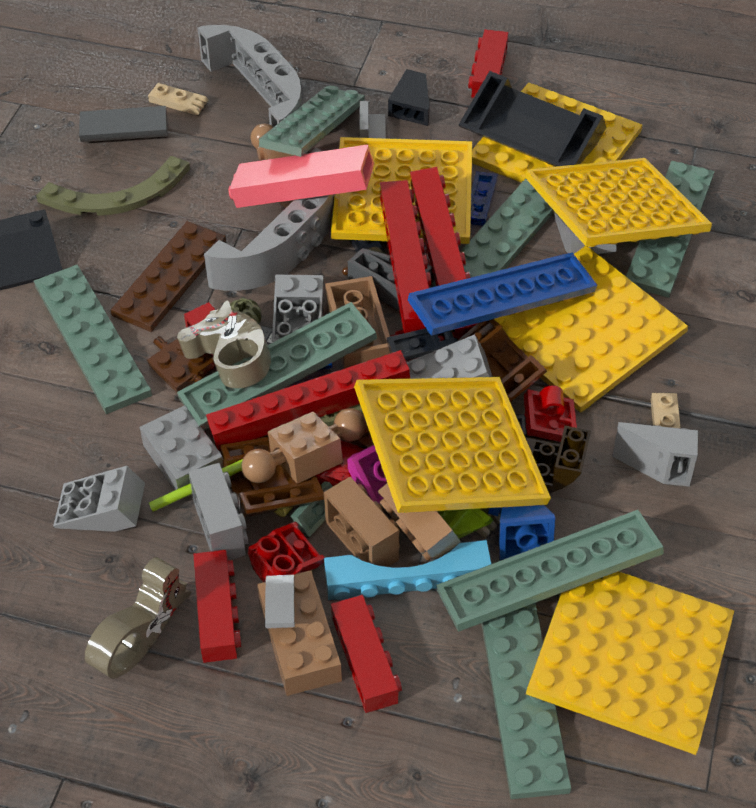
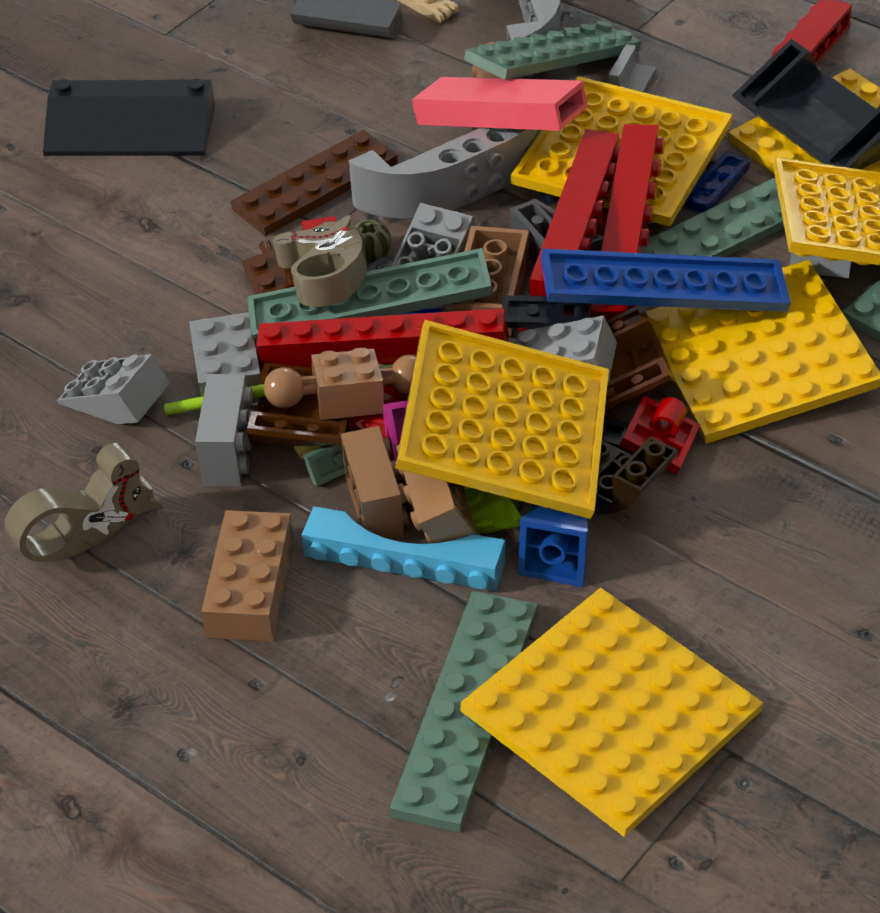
camera: 25 degrees right, 5 degrees down
(92, 339) = (197, 227): sand green plate -> none
(116, 202) = (307, 94): olive plate -> none
(215, 607) = (176, 524): red brick -> none
(279, 601) = (232, 530): light grey slope -> none
(284, 553) = (277, 490): red slope -> none
(365, 654) = (308, 618): red brick -> none
(410, 98) = (693, 55): black slope -> none
(549, 570) = (558, 588): sand green plate -> none
(658, 451) = (766, 504): light grey slope -> none
(665, 410) = (803, 479): tan hinge -> none

